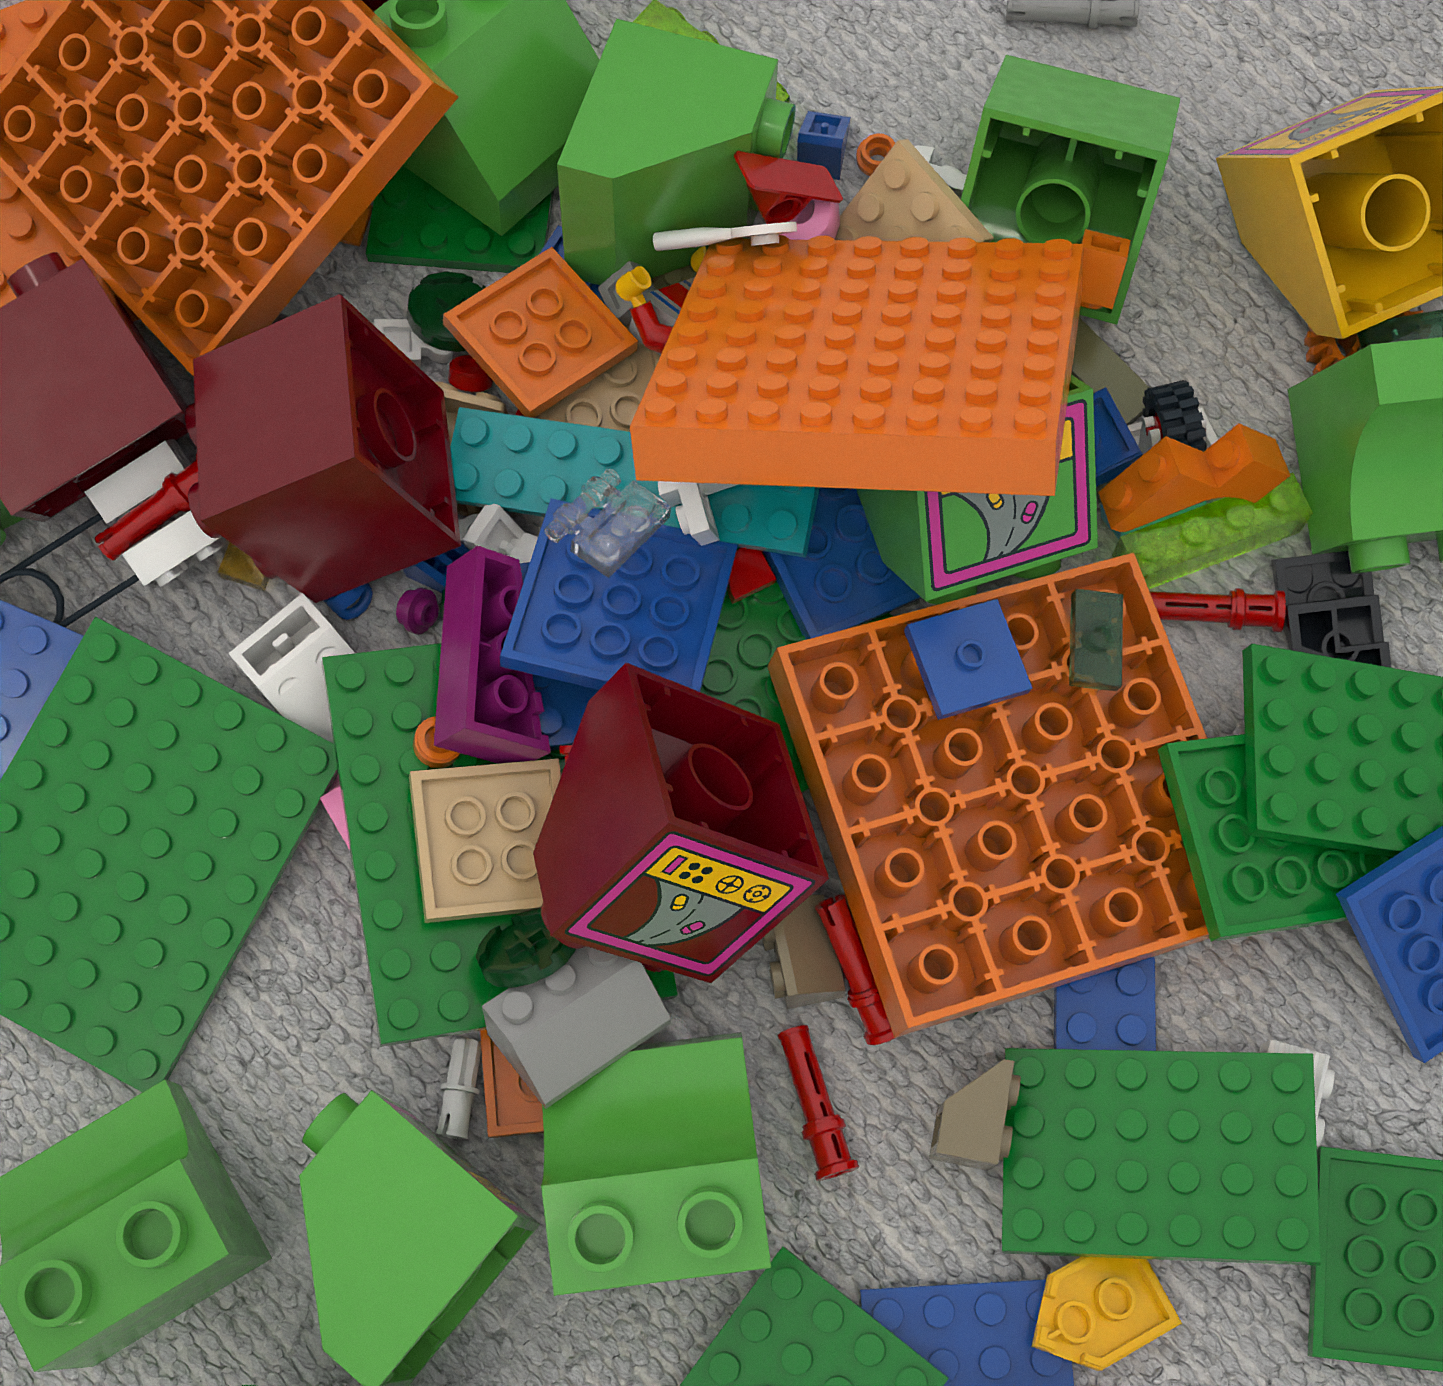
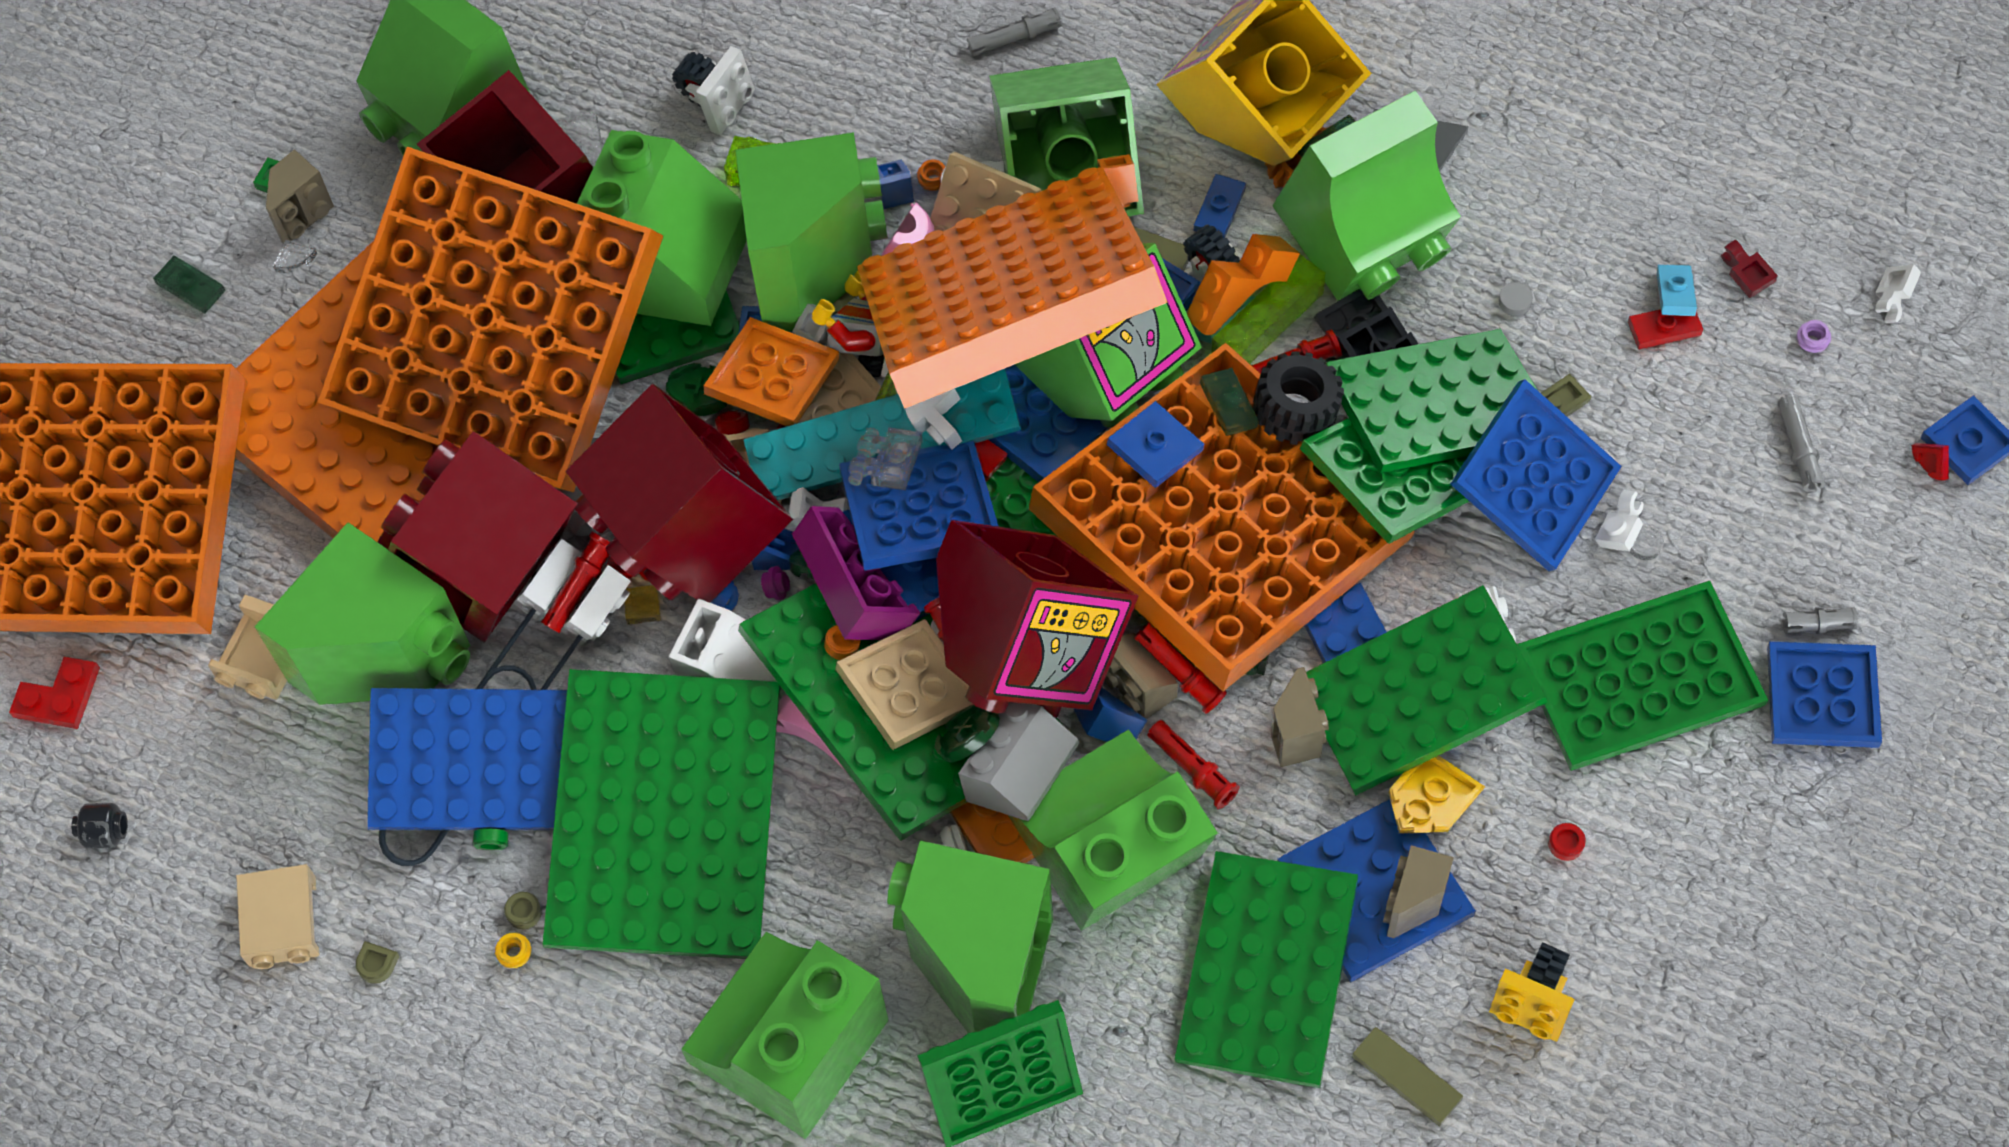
camera: 25 degrees left, 10 degrees down
(705, 236) = (892, 245): white piece -> none
(741, 998) = (1110, 718): none -> blue slope
(784, 185) = (892, 211): red piece -> none
(1217, 657) = (1303, 377): none -> black tyre
(1221, 355) = (1220, 204): none -> blue plate

